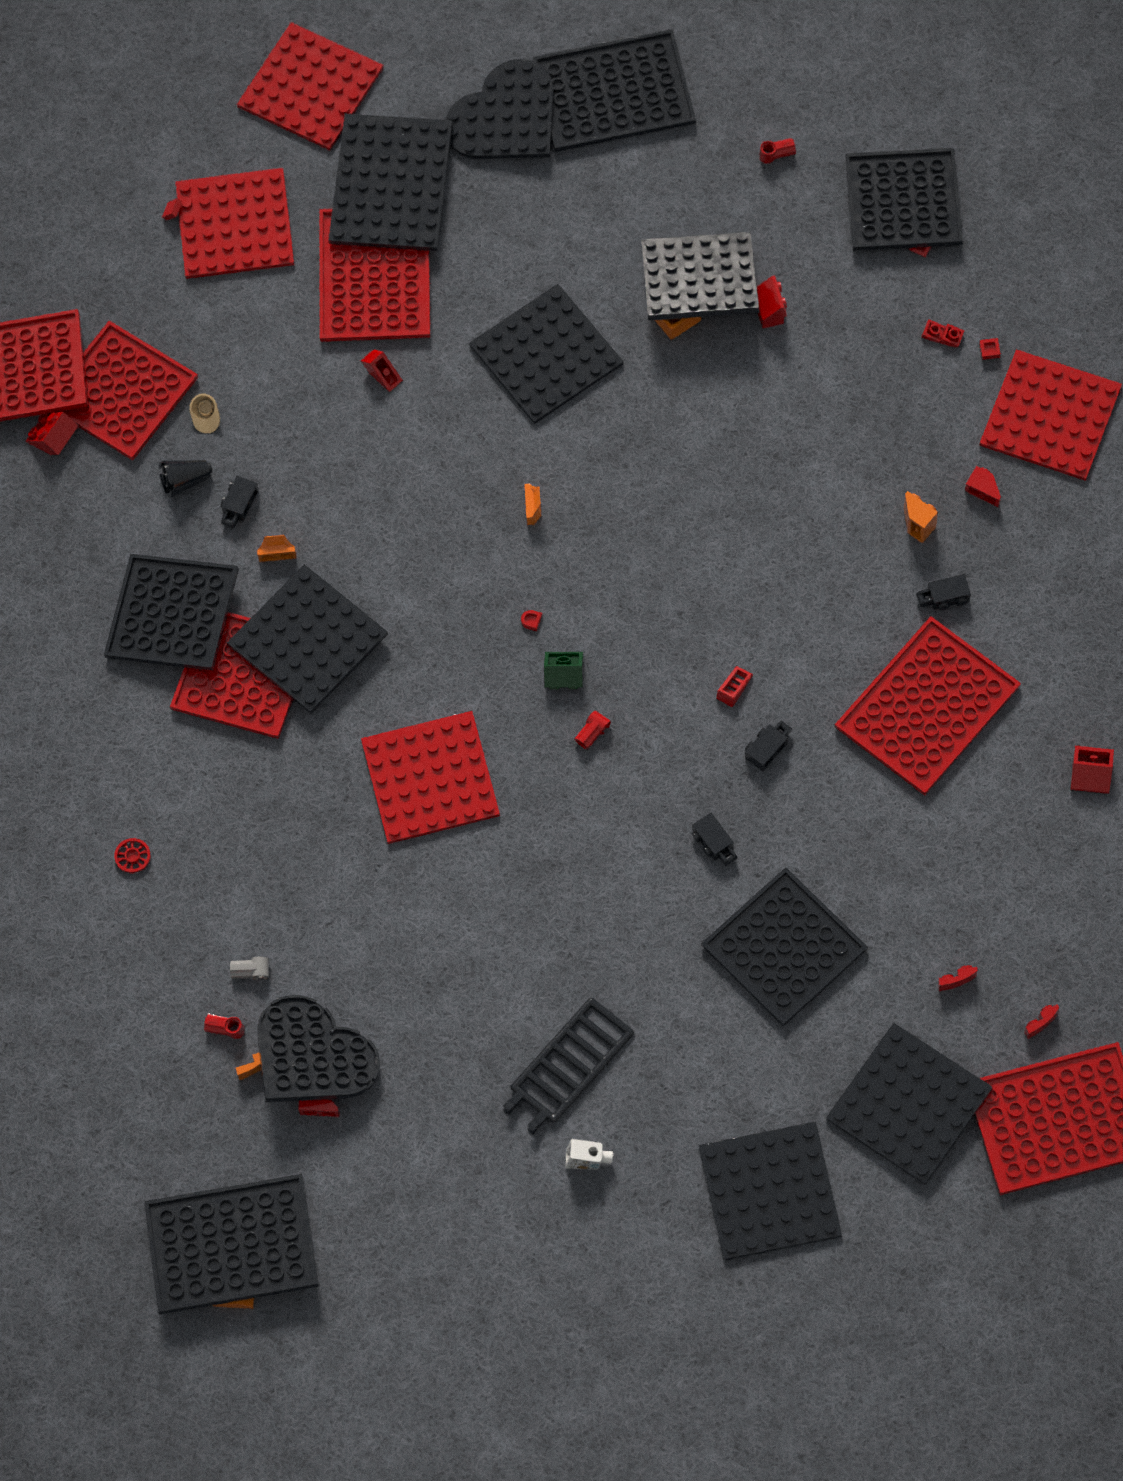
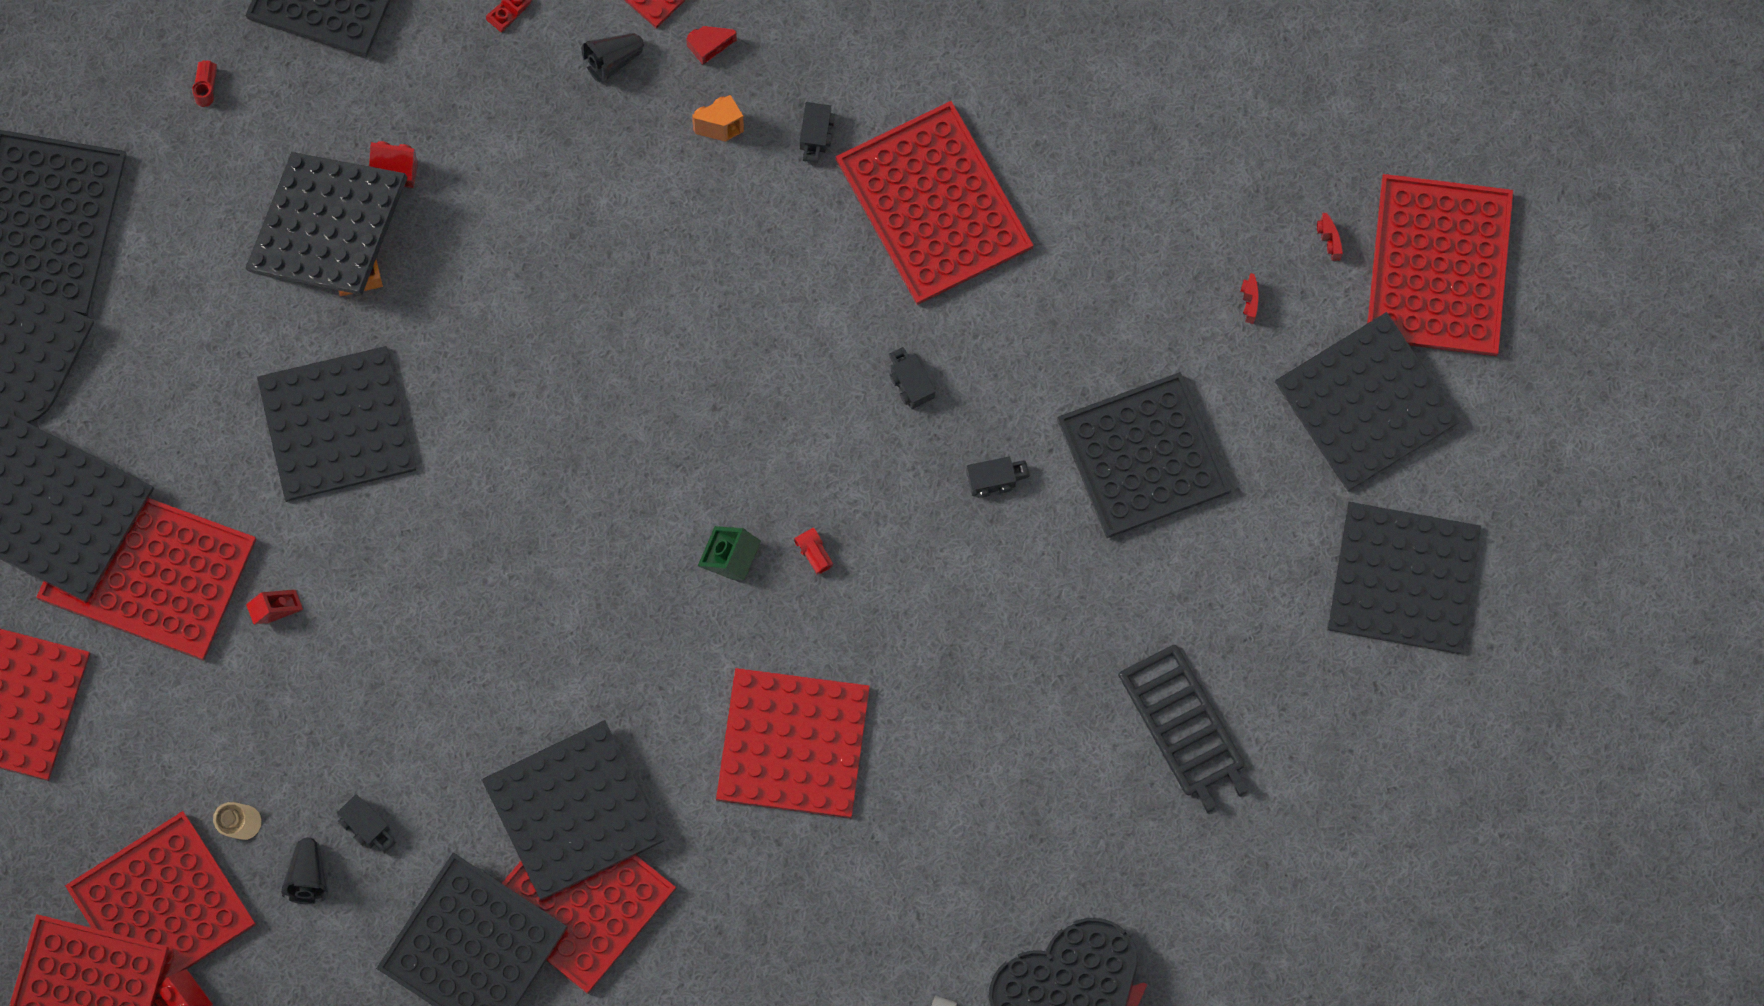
camera: 75 degrees left, 5 degrees up
(276, 548) = (446, 803): orange slope -> none
(530, 619) = (653, 565): red tile -> none
(533, 504) = (516, 506): orange slope -> none
(579, 1155) = (1297, 745): white torso -> none
(728, 696) = (832, 398): red slope -> none
(938, 419) = (611, 54): none -> black cone
(1092, 769) = (1078, 72): red slope -> none

